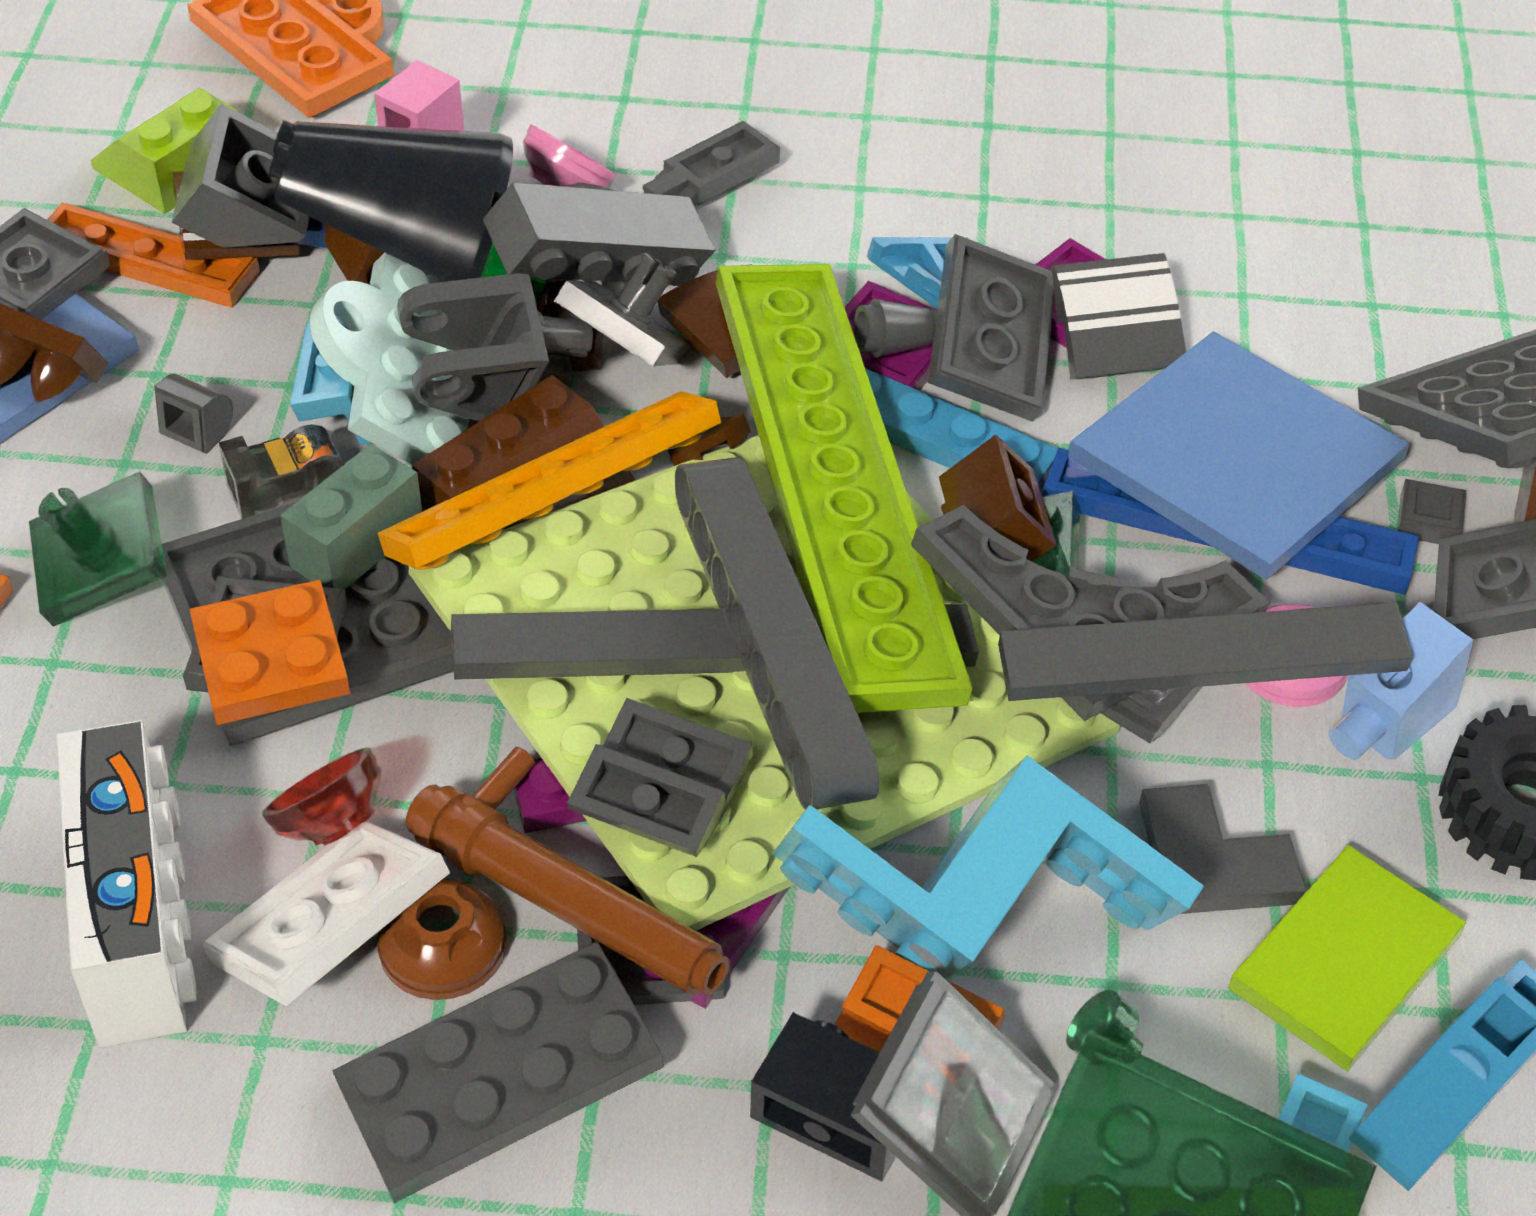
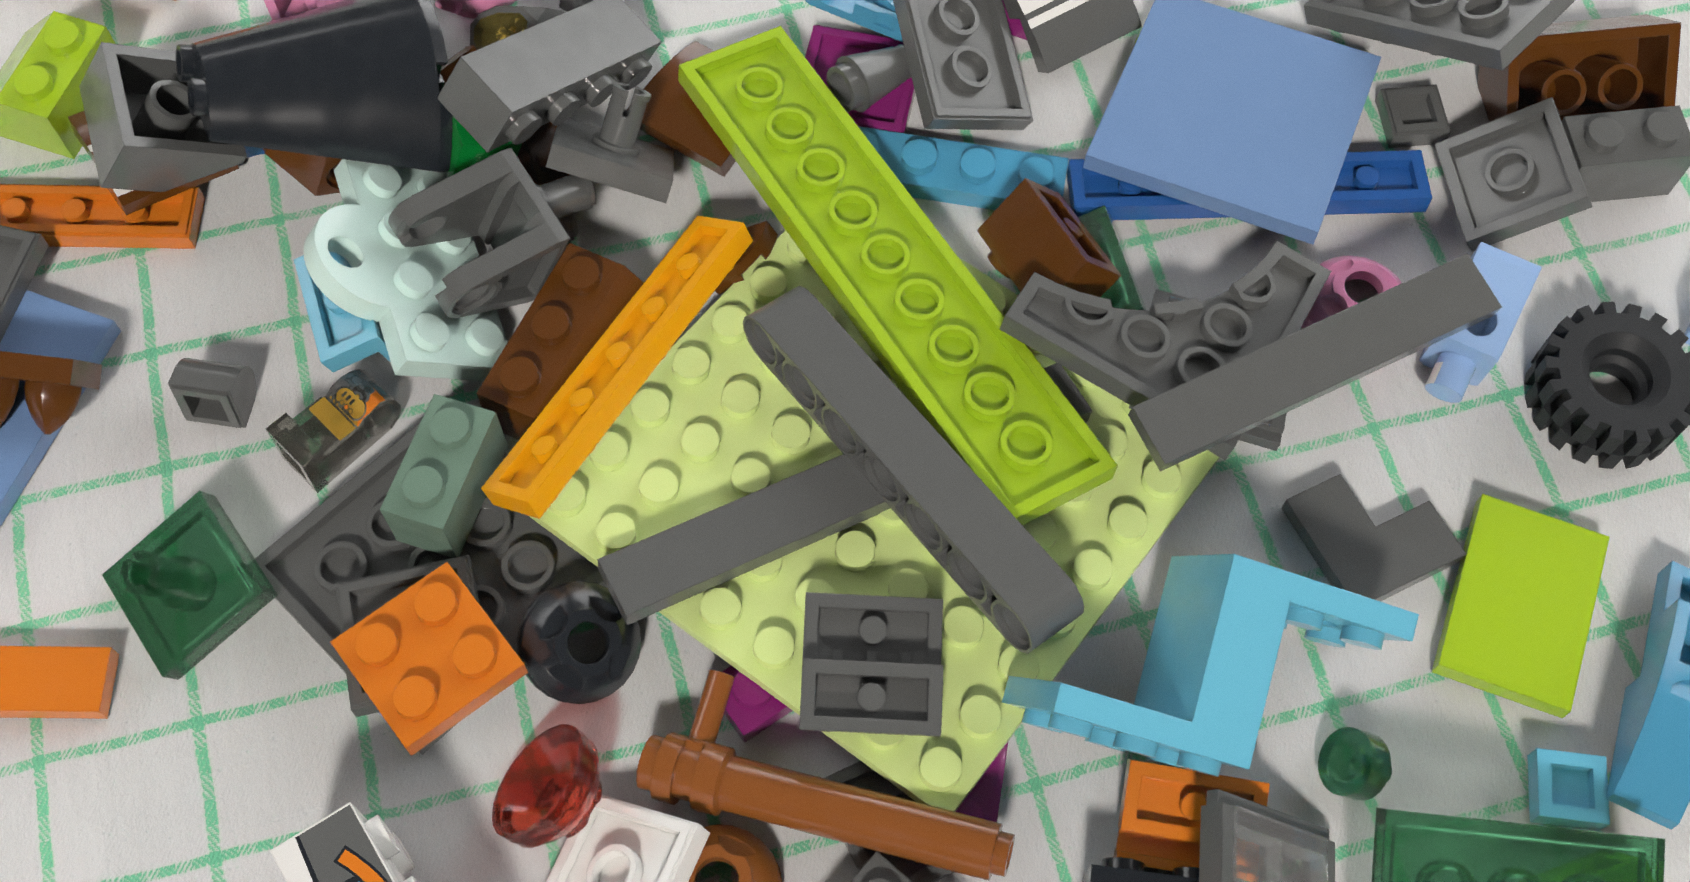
camera: 20 degrees left, 15 degrees up
(401, 726) = (545, 650): none -> black piece

